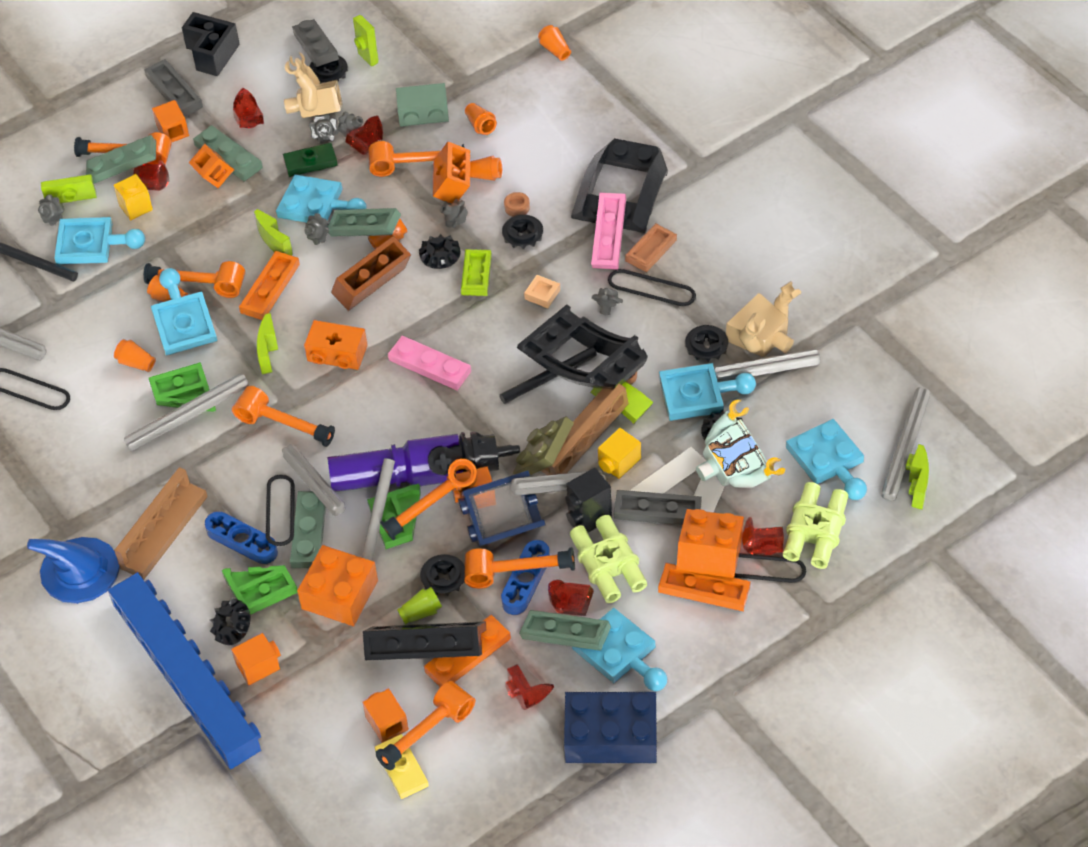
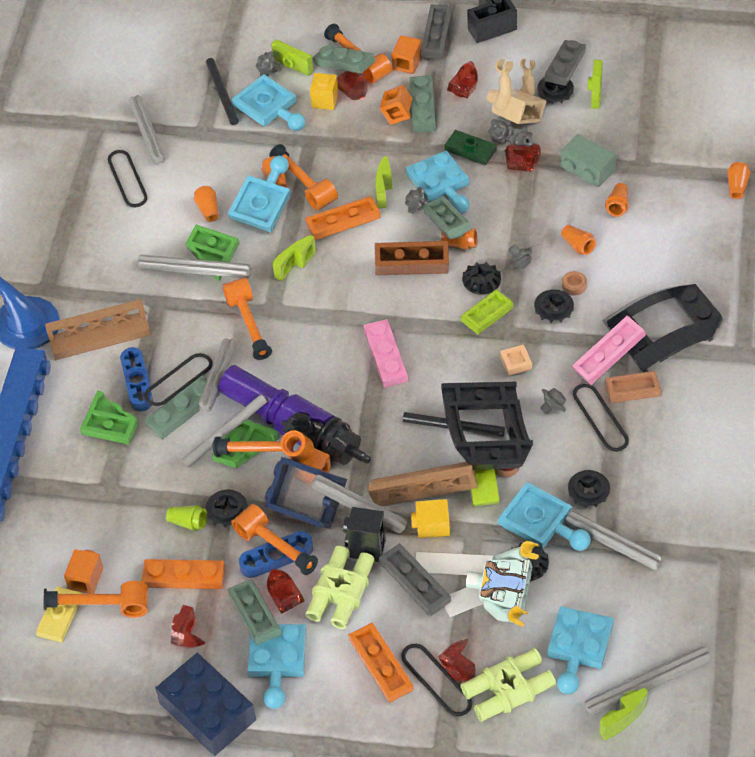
camera: 45 degrees right, 0 degrees up
(240, 619) = (65, 429): black gear -> none
(256, 658) = (53, 466): orange brick -> none
(336, 345) = (336, 292): orange brick -> none
(337, 585) = (152, 459): orange brick -> none
(383, 159) = (518, 180): orange piece -> none
(423, 641) = (158, 540): black fence -> none
(451, 172) = (547, 225): orange brick -> none
(543, 446) = (387, 468): olive plate -> none
(710, 543) = (412, 633): orange brick -> none
(763, 325) = (639, 506): tan torso -> none

